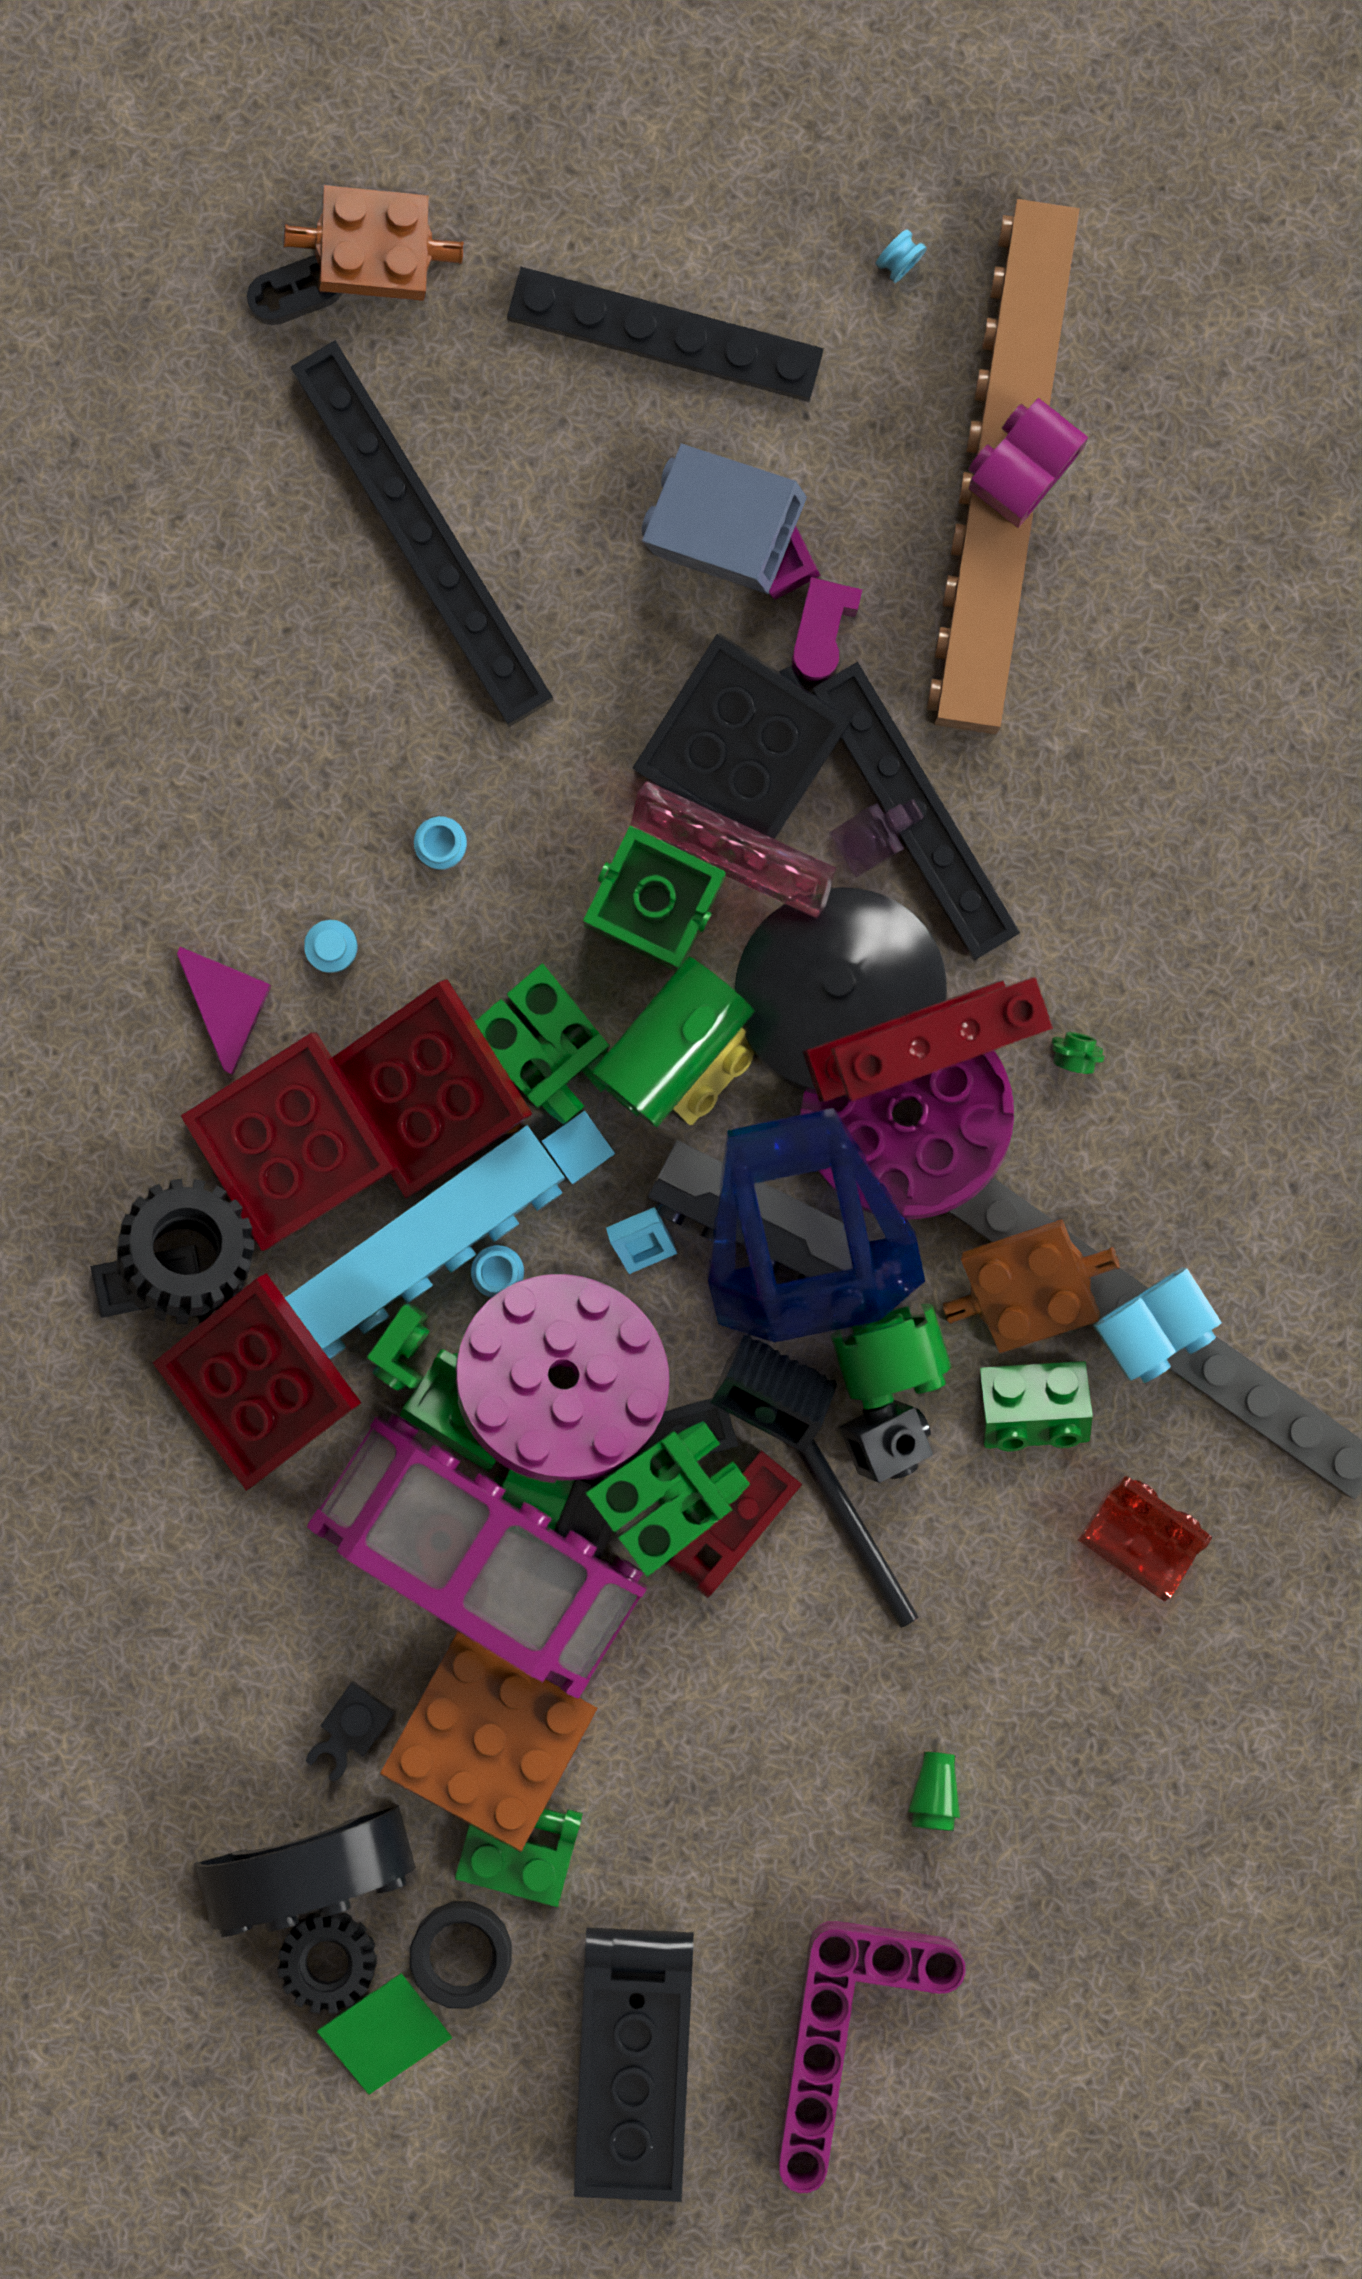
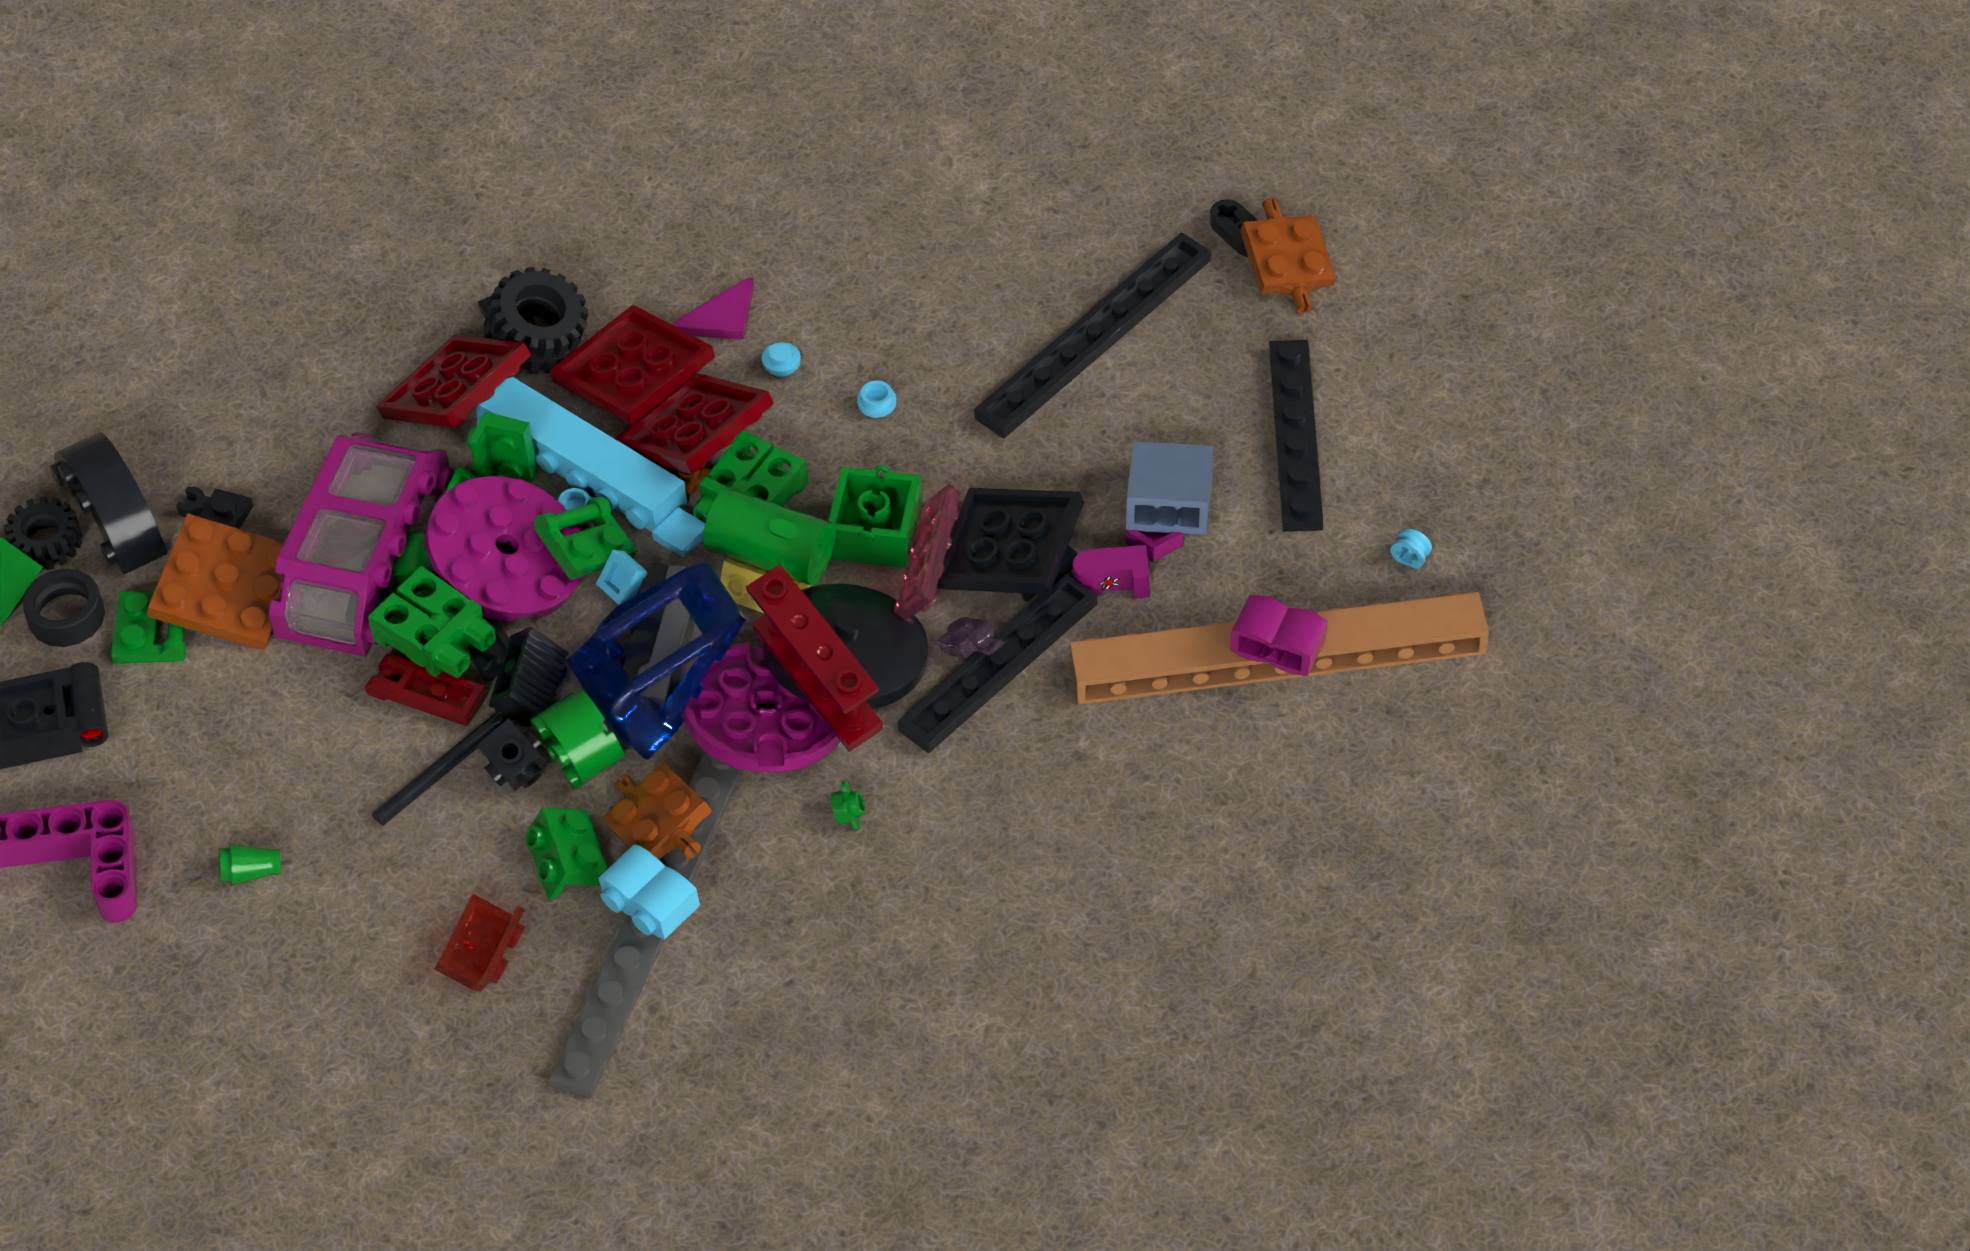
camera: 75 degrees right, 35 degrees down
(587, 1264) = (586, 550): none -> green plate

